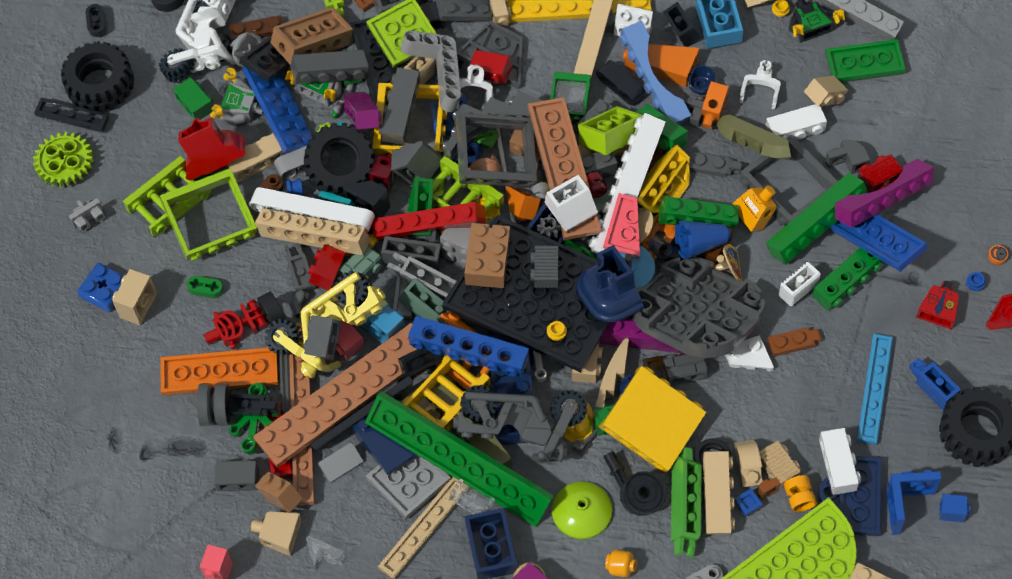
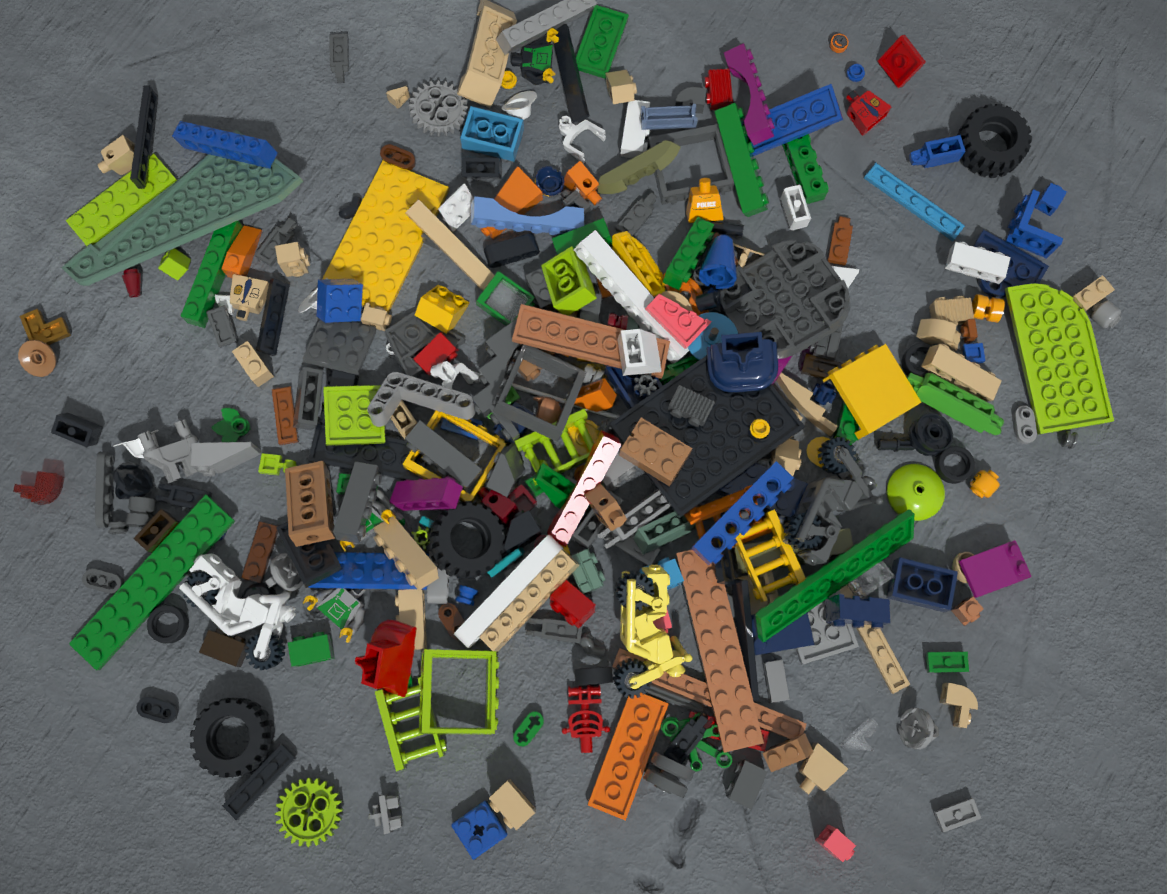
camera: 70 degrees left, 15 degrees up
(165, 38) = (224, 648): none -> dark brown brick
(305, 122) = (406, 553): none -> tan brick
(322, 337) = (668, 643): dark grey brick -> none
(400, 192) = (522, 499): none -> dark red panel
(416, 243) = (609, 514): none -> medium nougat torso
(435, 494) = (857, 611): none -> dark blue wedge
(536, 54) = (441, 308): none -> yellow slope
(549, 374) = (787, 456): none -> tan brick
(628, 516) = (964, 454): none -> black tyre
(745, 238) = (726, 228): none -> black pin
(757, 27) = (520, 104): none -> white piece
(814, 50) = (570, 76): none -> black tile
(818, 139) = (668, 117): none -> sand blue container

